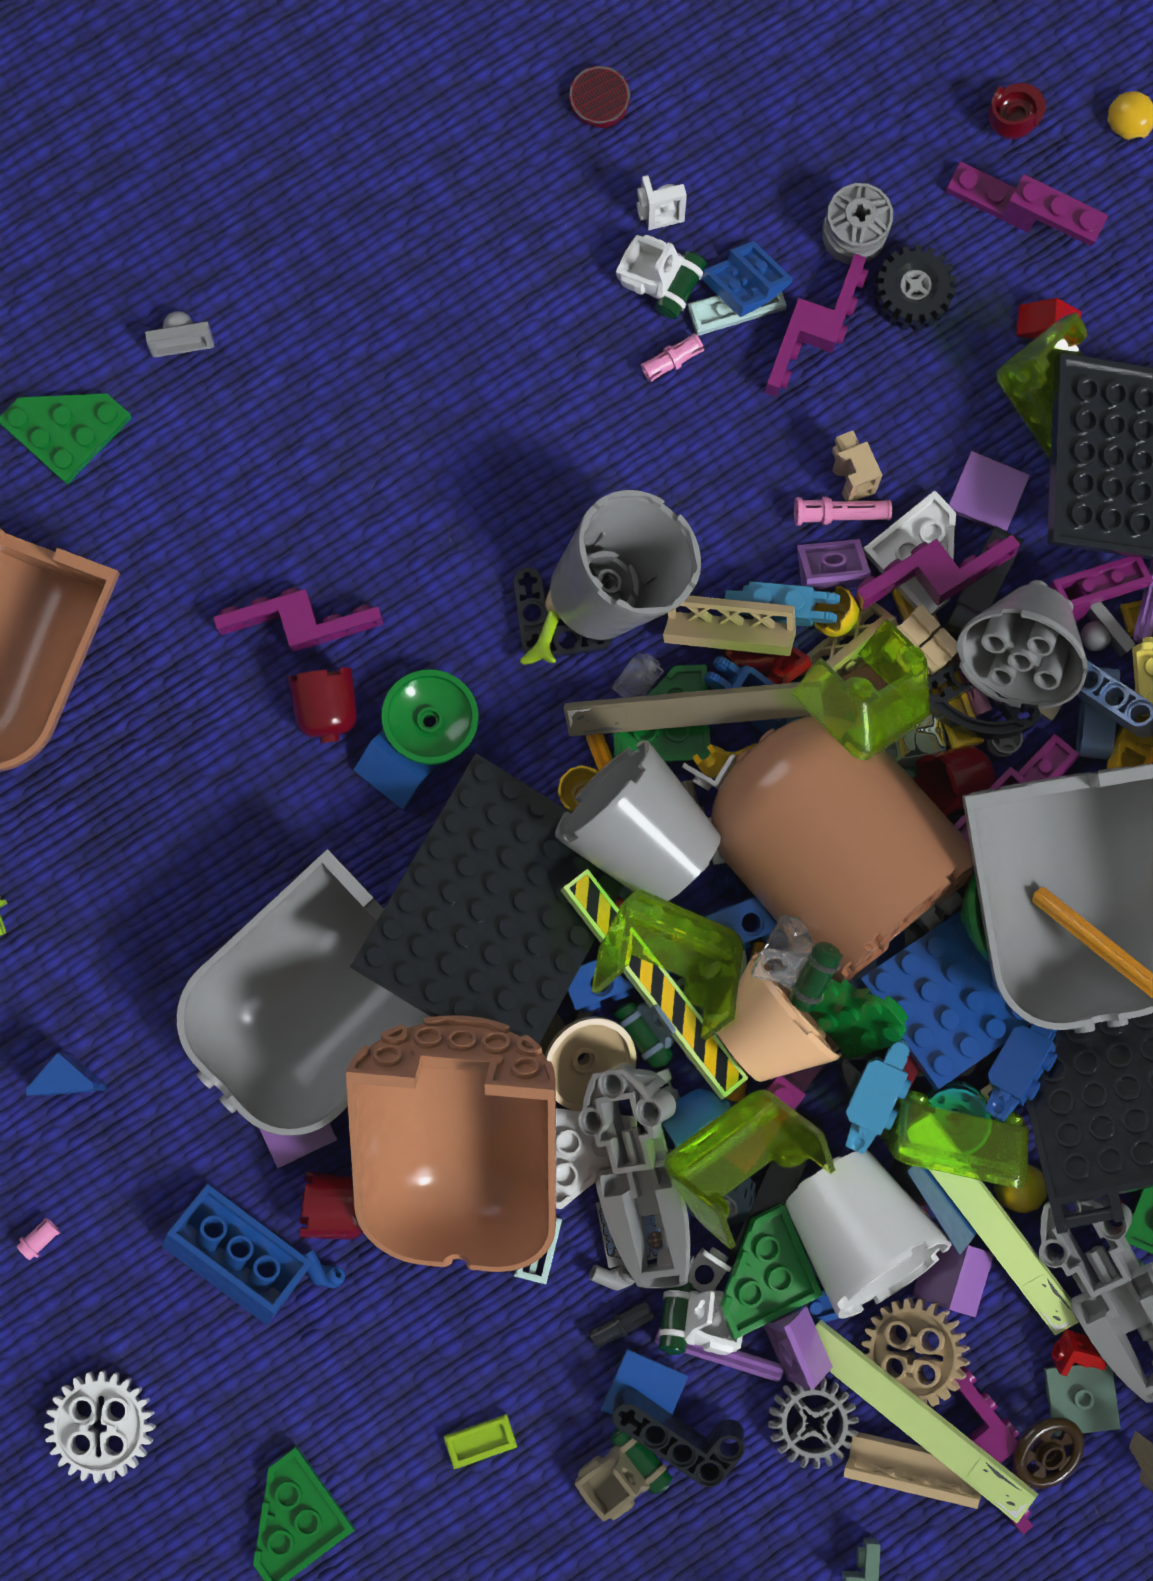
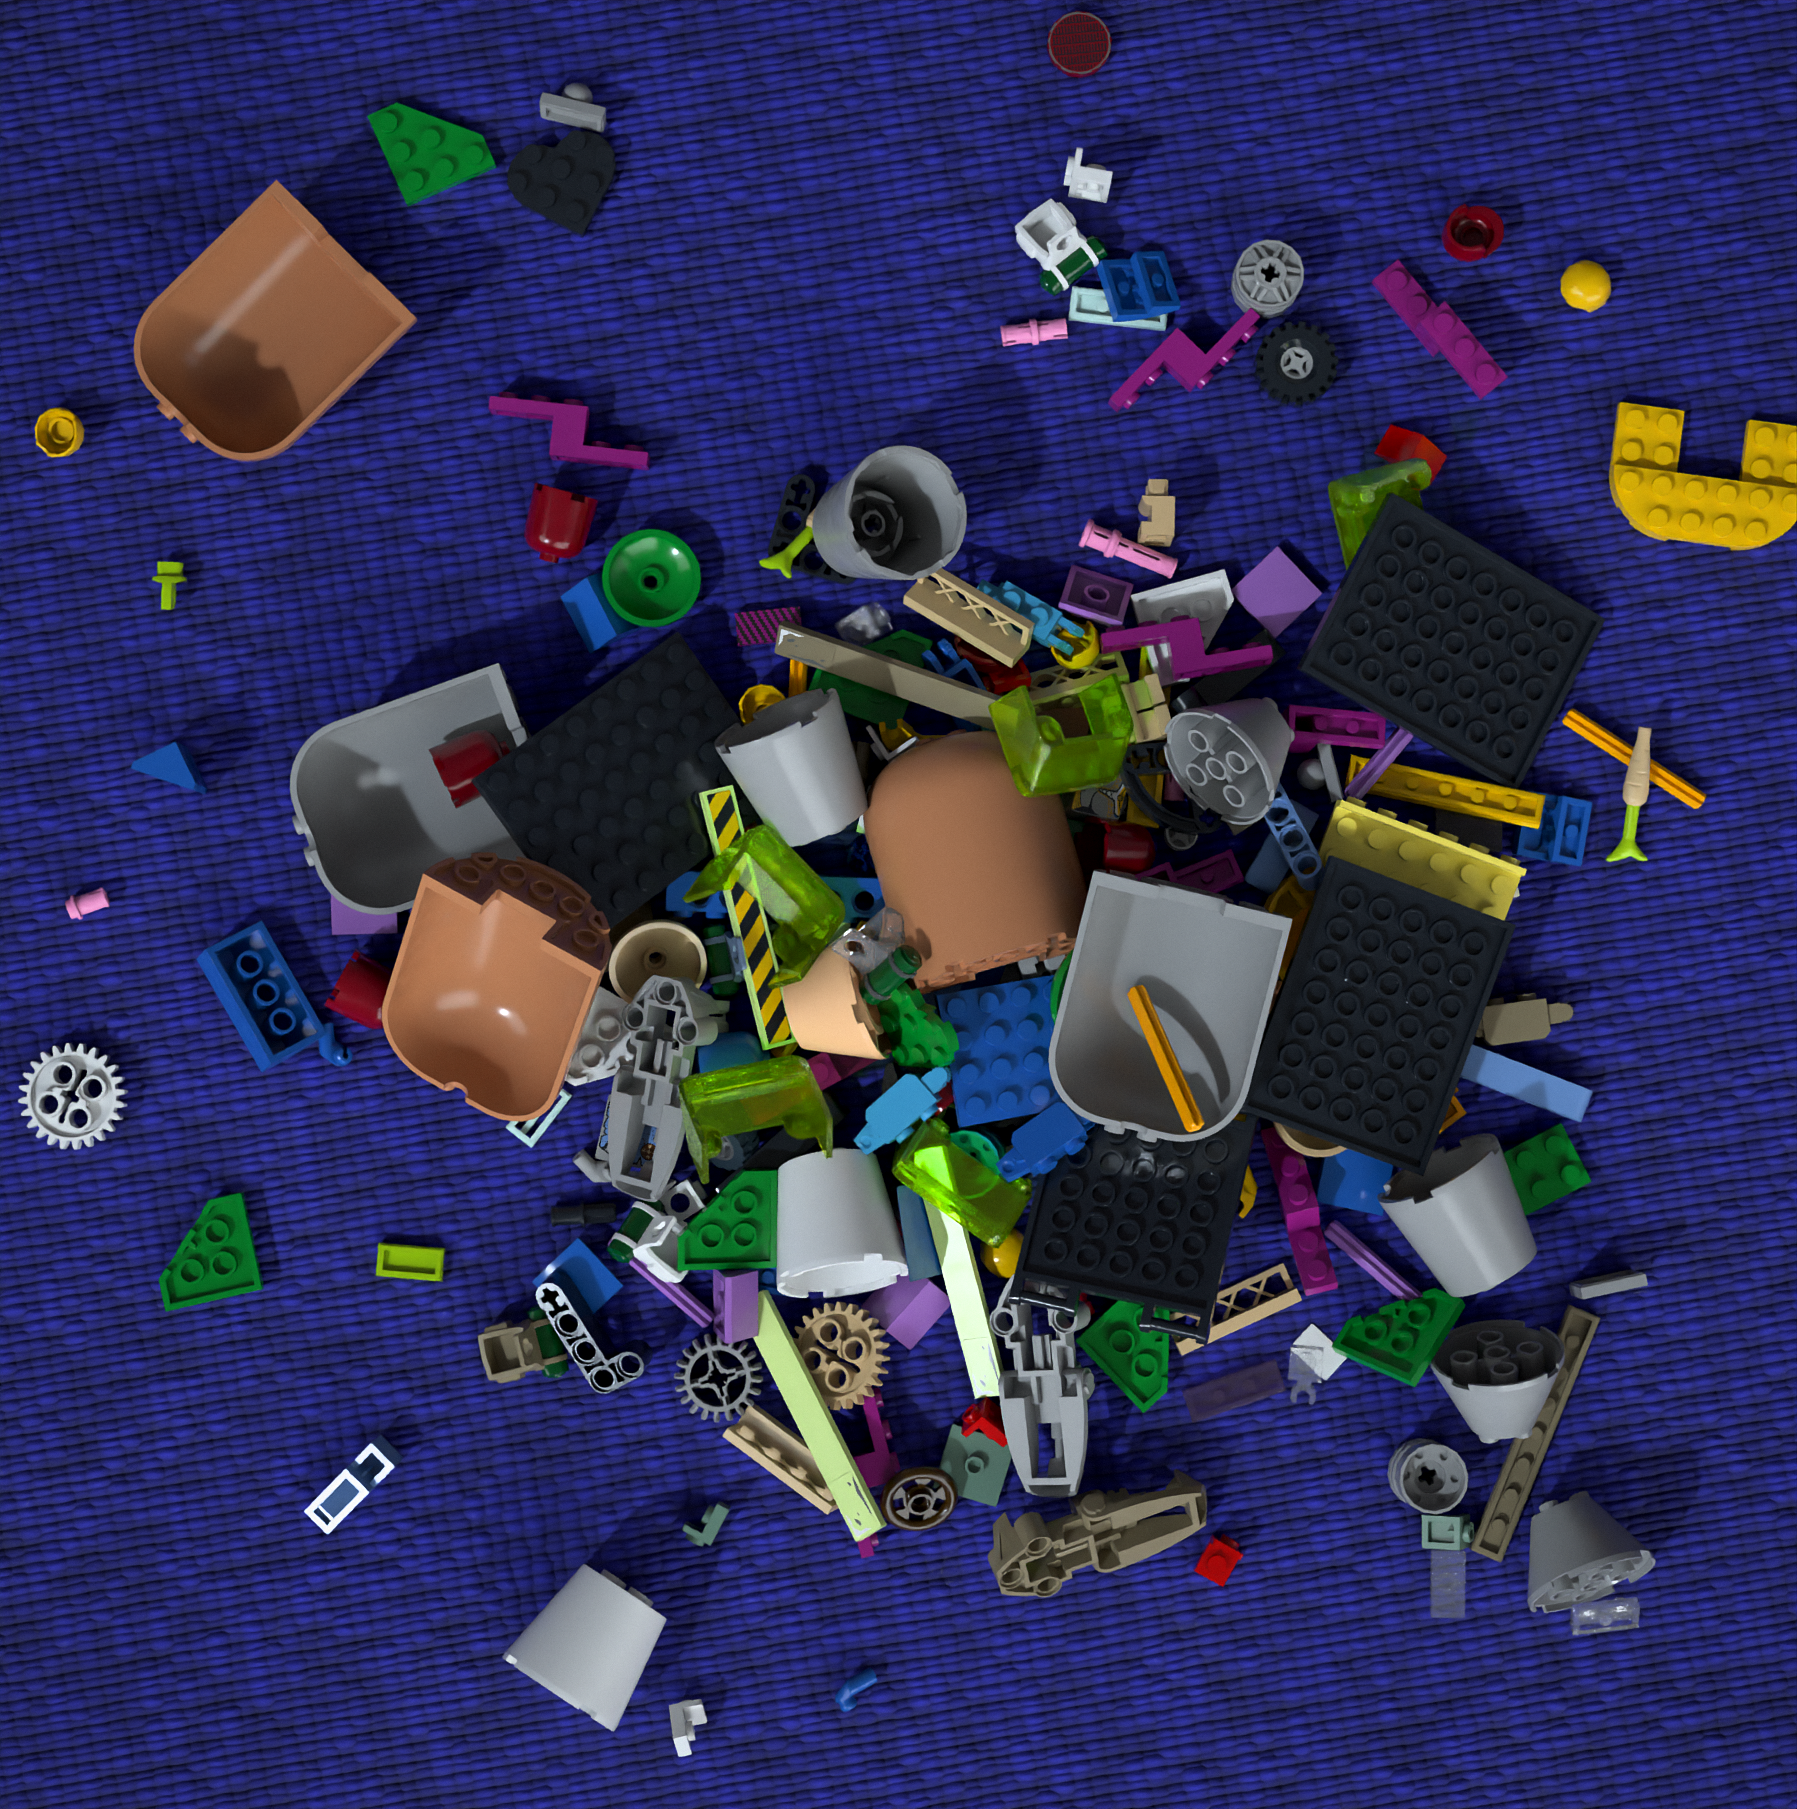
camera: 25 degrees right, 5 degrees up
(199, 403) = (564, 181): none -> black plate
(331, 954) = (464, 759): none -> dark red cylinder
(548, 716) = (763, 625): none -> tile

